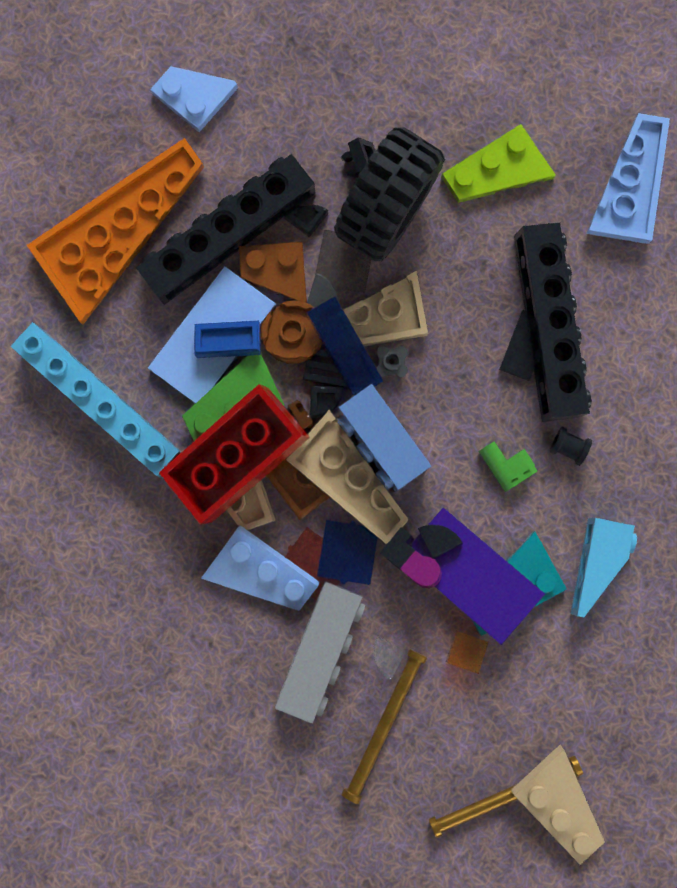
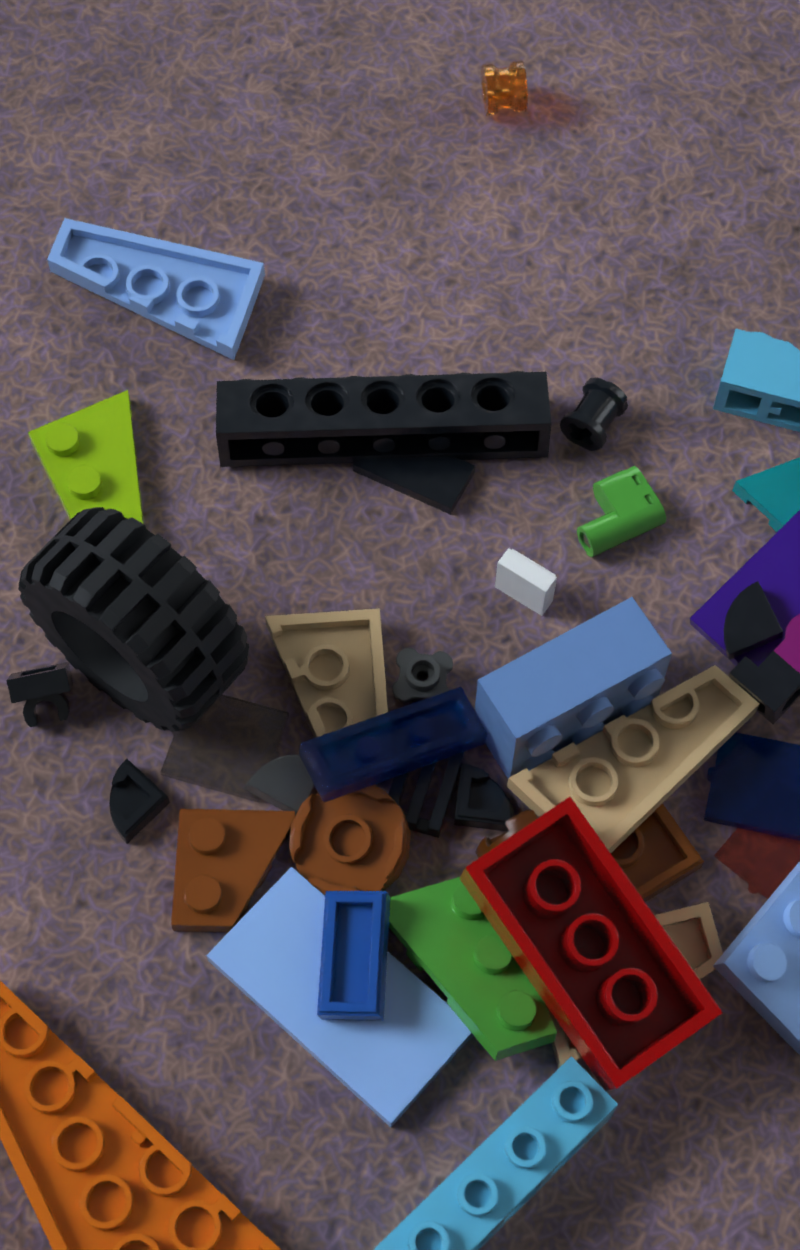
camera: 85 degrees left, 20 degrees down
(221, 246) = (69, 808): black brick -> none
(454, 413) = (525, 581): none -> white tile

